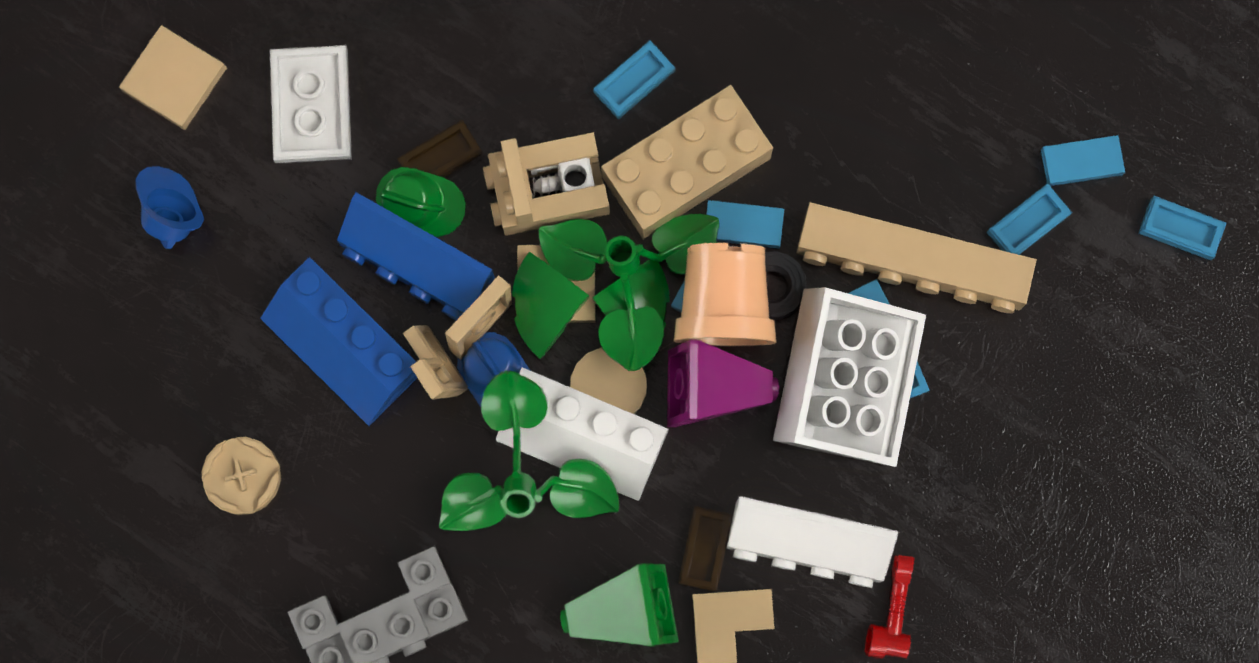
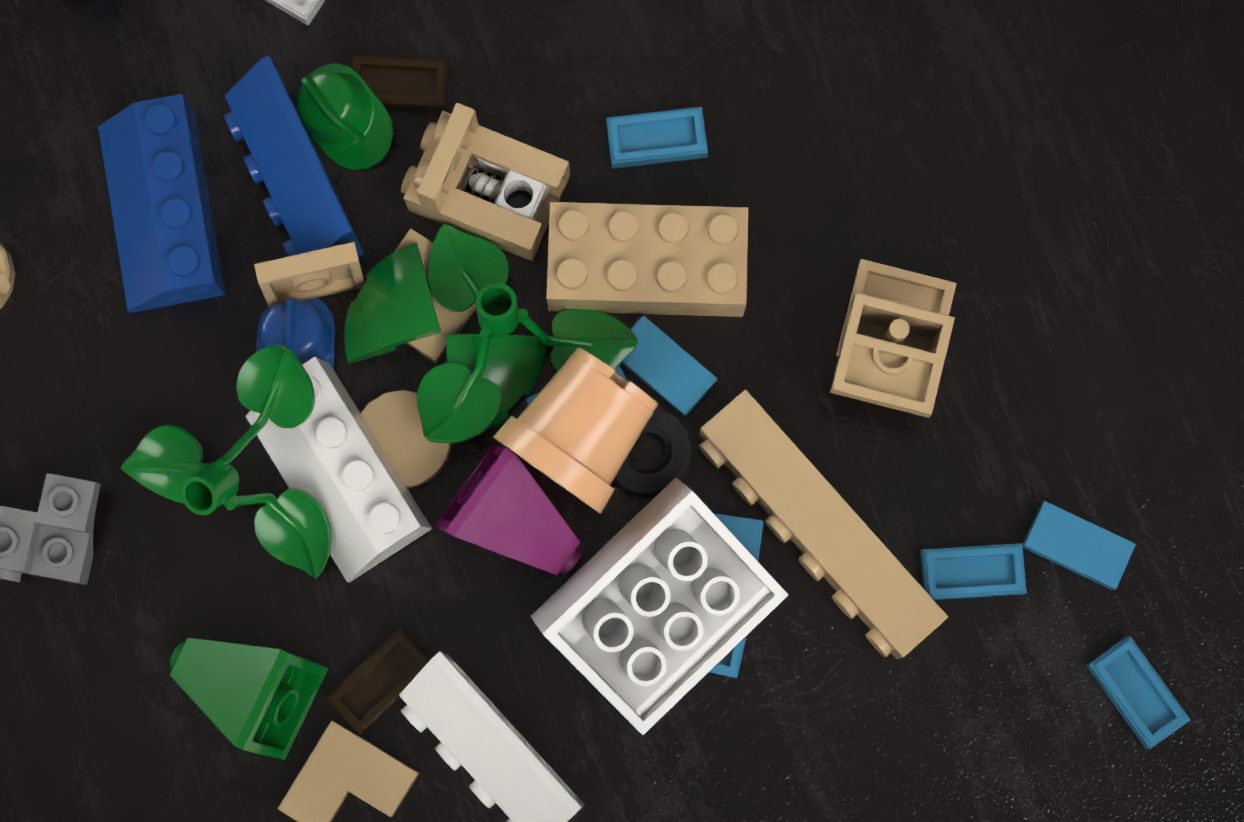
camera: 35 degrees right, 0 degrees up
(435, 367) = (233, 302): tan tile -> none
(880, 106) = (894, 338): none -> tan bracket

